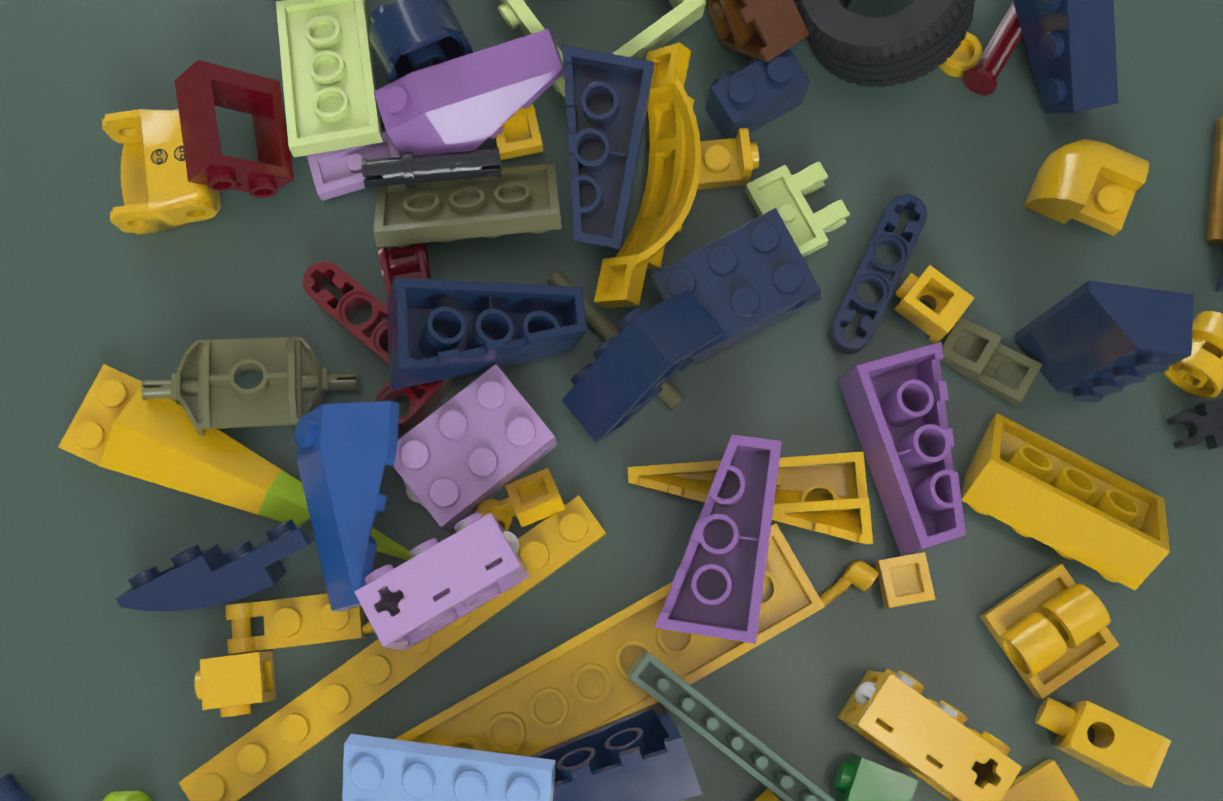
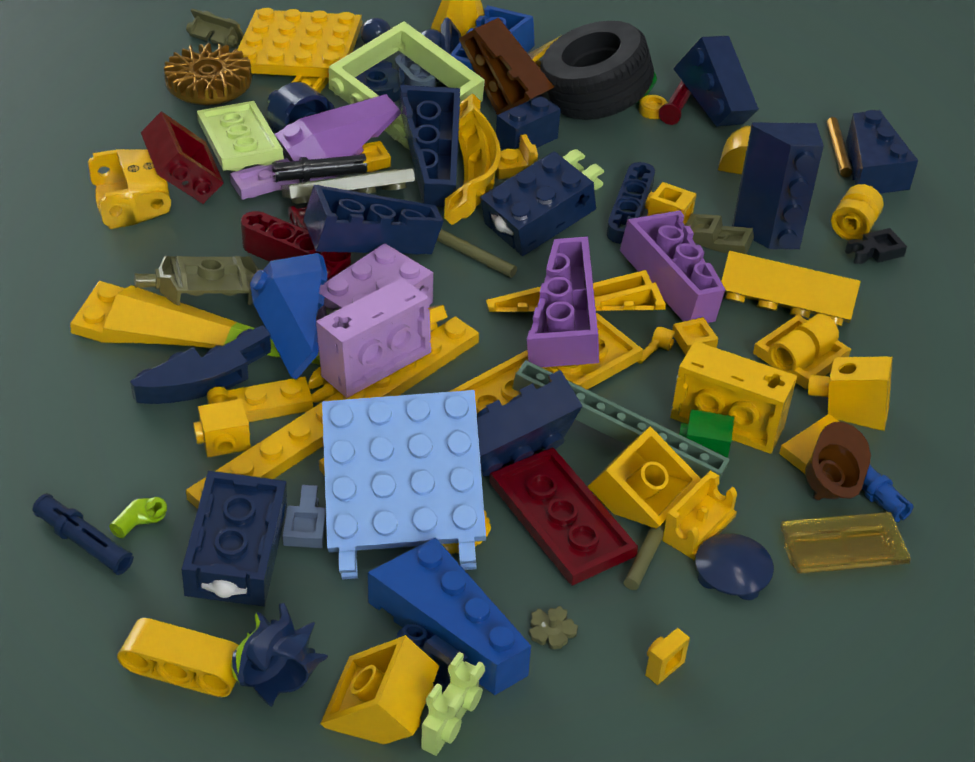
camera: 10 degrees left, 35 degrees down
(639, 362) = (479, 233): dark blue wedge -> none

